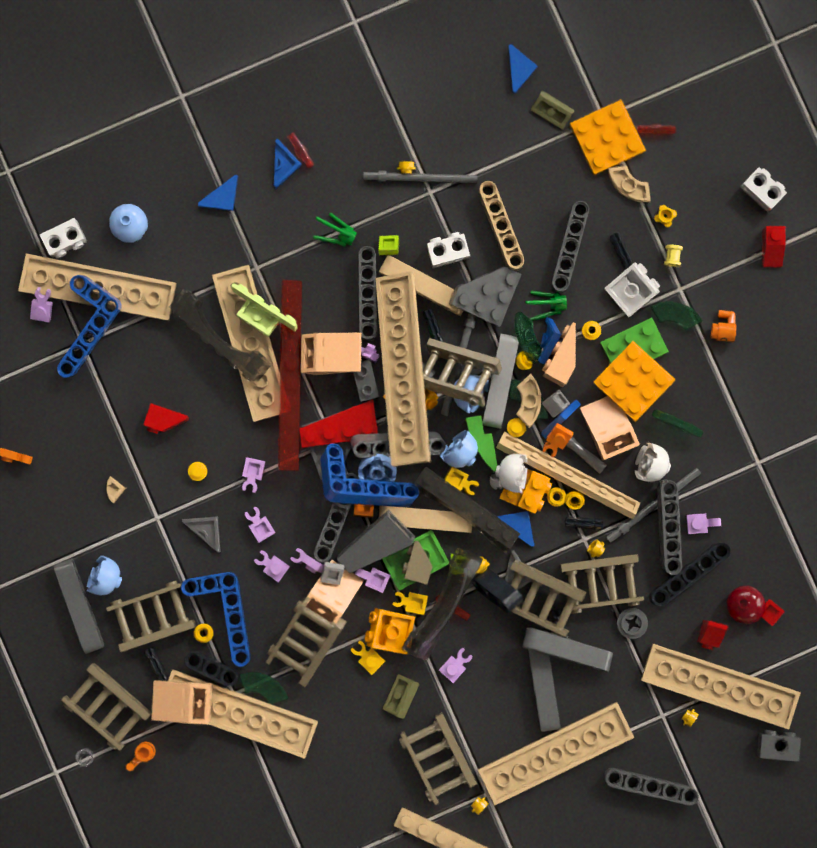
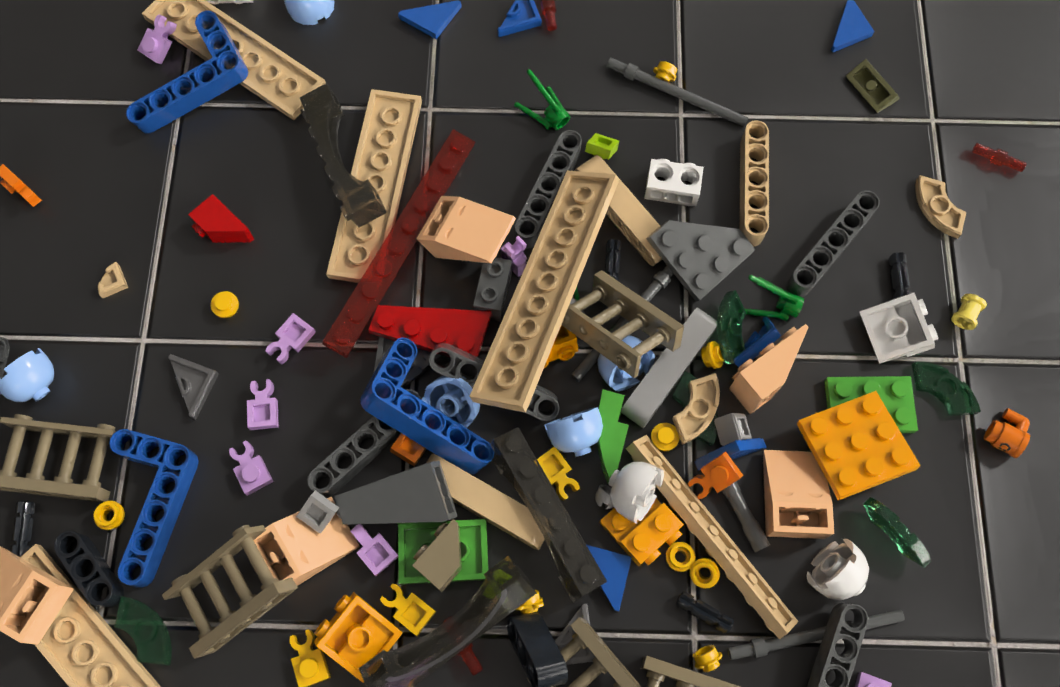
camera: 30 degrees right, 15 degrees down
(259, 314) = (403, 149): yellowish green bracket -> none
(312, 564) = (300, 489): lavender plate -> none
(585, 332) = (817, 364): yellow plate -> none
(607, 137) = (931, 142): light orange plate -> none
(670, 215) = (977, 254): yellow plate -> none

